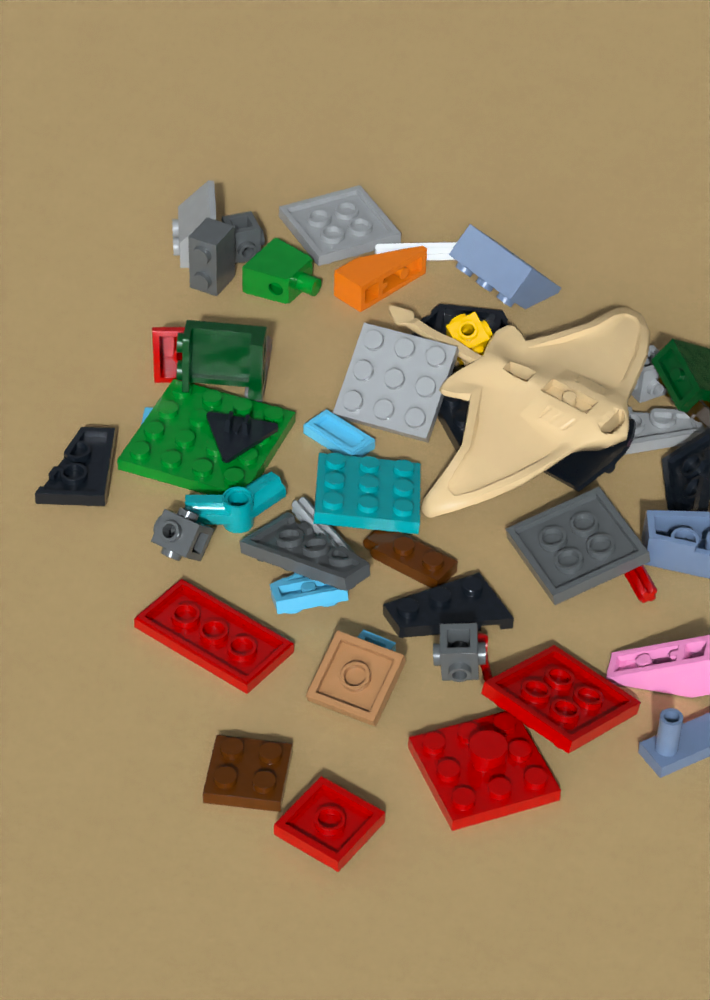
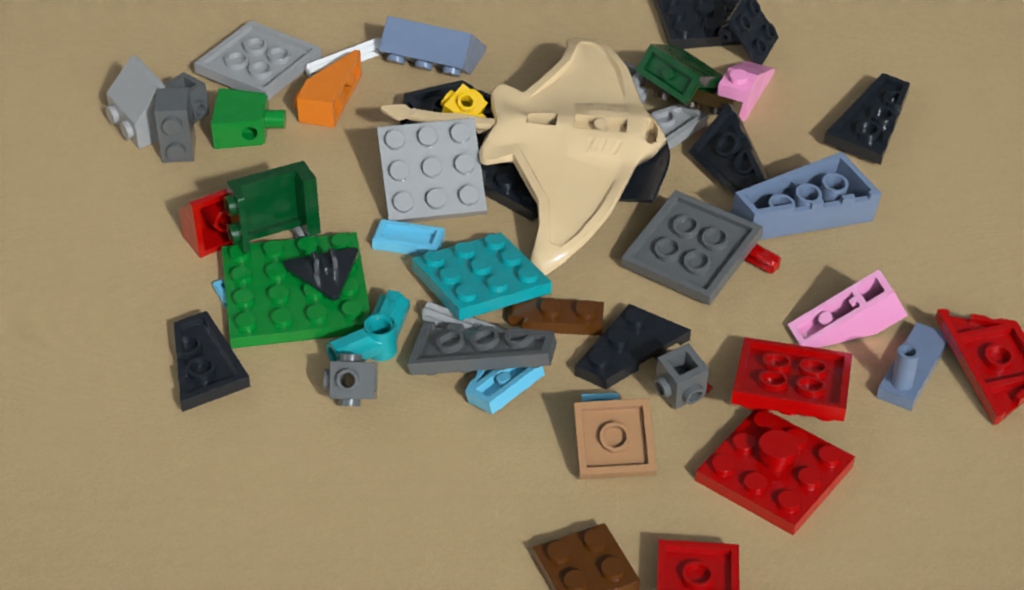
camera: 30 degrees left, 0 degrees up
(214, 635) = (448, 459): red tile -> none

